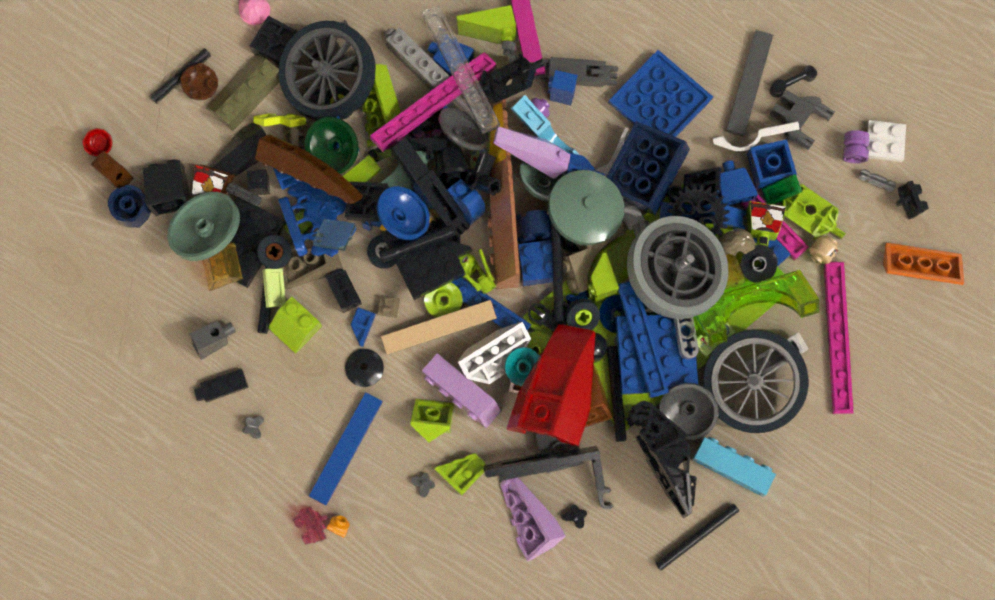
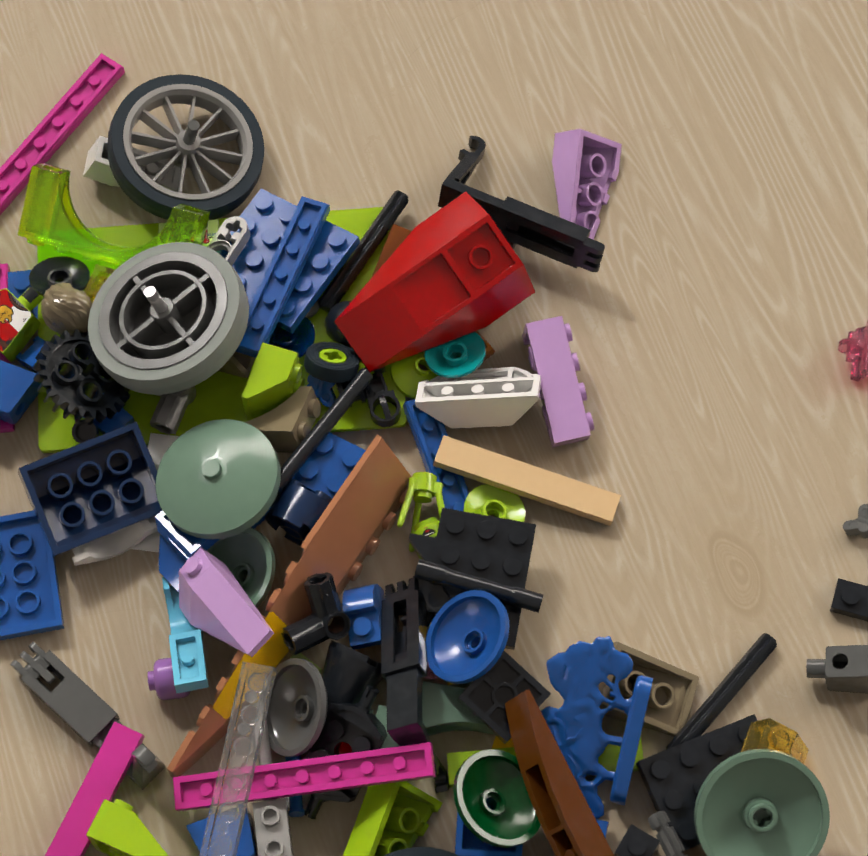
camera: 140 degrees left, 10 degrees down
(274, 287) = (714, 683): yellowish green tile -> none
(279, 243) = (691, 736): black bush -> none
(294, 325) = (718, 615): lime slope -> none
(334, 234) = (583, 670): clear light blue piece -> none
(339, 525) = (828, 331): light orange plate -> none
(343, 290) = (620, 612): black hinge -> none
(346, 449) = (756, 417): blue tile -> none
(362, 324) = (625, 559): blue tile -> none
(366, 377) = (662, 516): black dish -> none
(373, 252) = (541, 641): black bush -> none
(388, 306) = (573, 558): dark tan tile -> none
(423, 483) = (685, 313): dark grey piece -> none
(432, 418) = (617, 374): lime slope -> none
(462, 472) = (626, 290): lime wing -> none
(520, 71) = (151, 722): black plate -> none
(562, 87) = (110, 678): blue brick -> none
(576, 516) = (523, 158): black piece -> none
(665, 453) = (362, 135): black connector -> none
(695, 421) = (293, 169): dark grey dish -> none
(697, 537) = (395, 45): black piece -> none
(709, 177) = (38, 421): black slope -> none
(733, 466) = (292, 85): medium azure brick -> none

